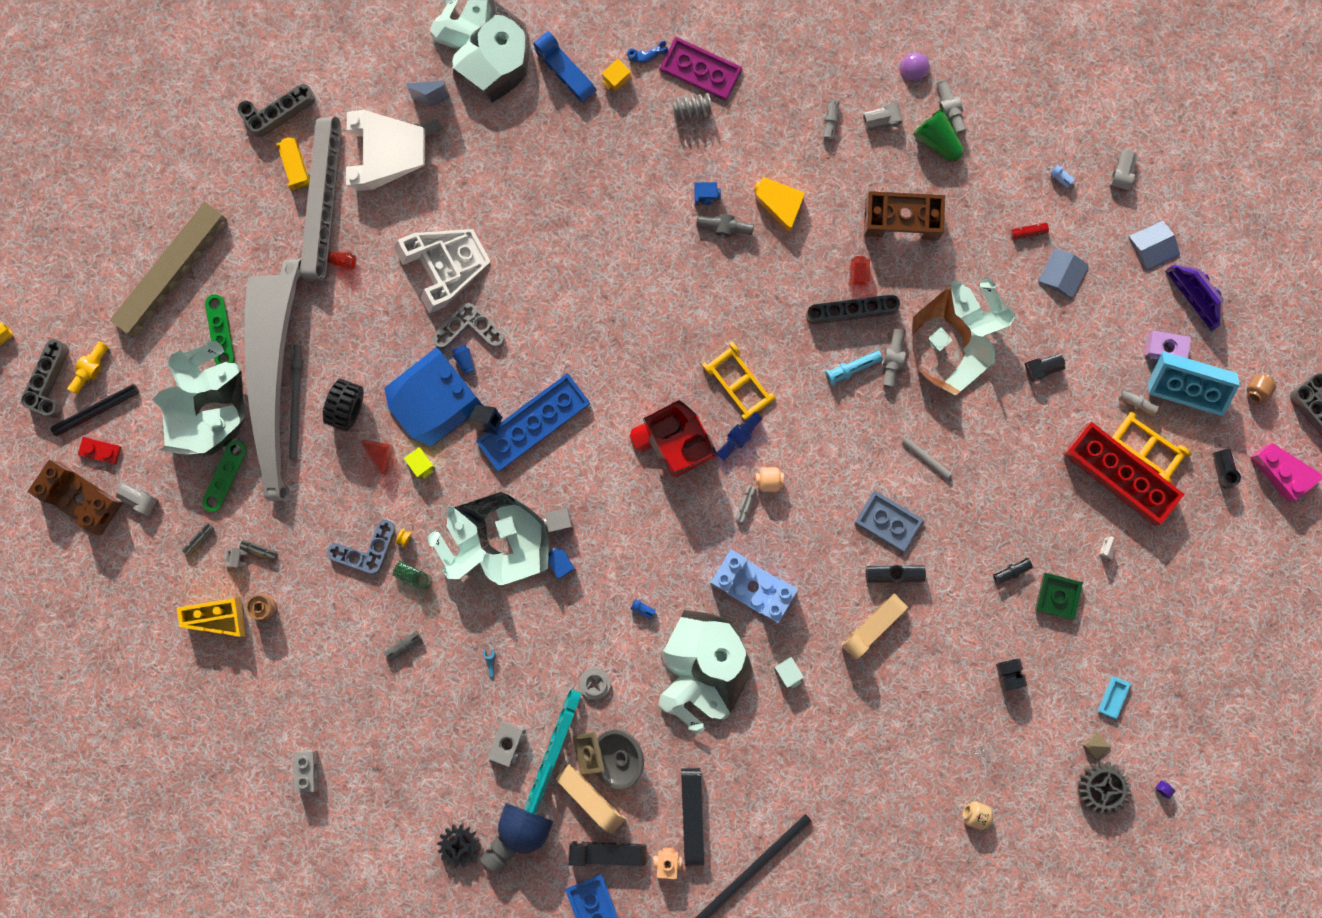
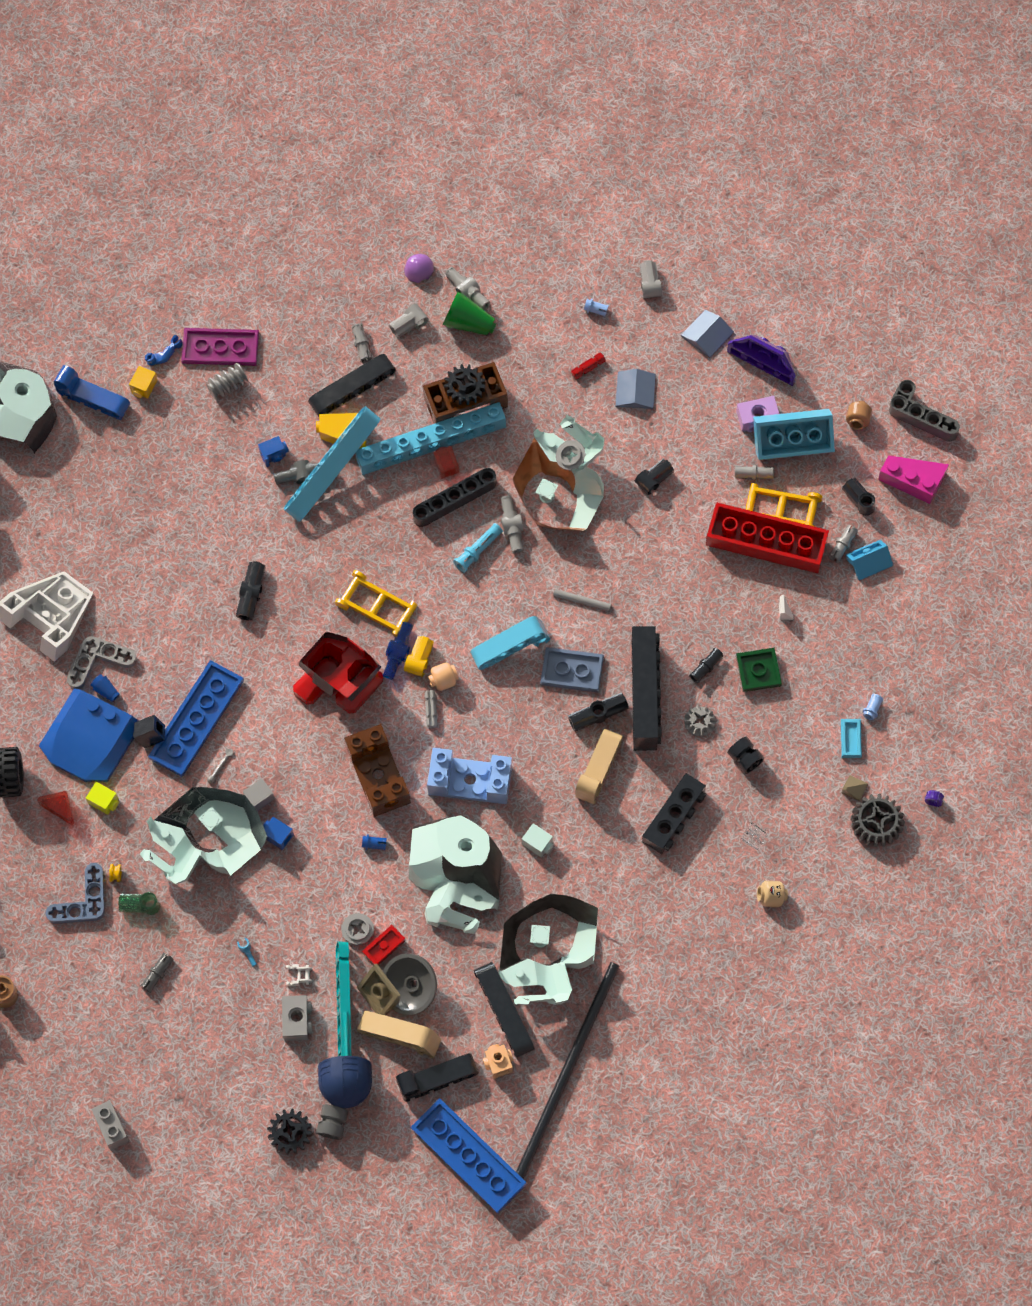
camera: 25 degrees left, 15 degrees down
(535, 701) = (307, 980): none -> white piece
(549, 466) = (229, 752): none -> light grey hinge
(611, 710) = (383, 945): none -> red plate
(630, 321) = (250, 591): none -> black piece
(673, 523) = (369, 753): none -> reddish brown plate
(730, 796) = (553, 975): none -> light aqua piece
(753, 454) = (419, 657): none -> yellow piece
(754, 231) = (332, 464): none -> medium azure beam
(805, 157) = (352, 384): none -> black beam
(843, 473) = (509, 642): none -> medium azure beam
(855, 242) = (431, 438): none -> medium azure brick
(903, 203) = (471, 388): none -> black gear
(947, 572) = (646, 688): none -> black brick
(951, 692) = (686, 787): none -> black brick
(974, 310) = (566, 449): none -> light grey gear
(980, 629) = (699, 729): none -> light grey gear
(1147, 677) = (872, 708): none -> light blue pin
(1190, 507) = (843, 543): none -> light grey pin
(1208, 532) = (870, 559): none -> dark azure panel

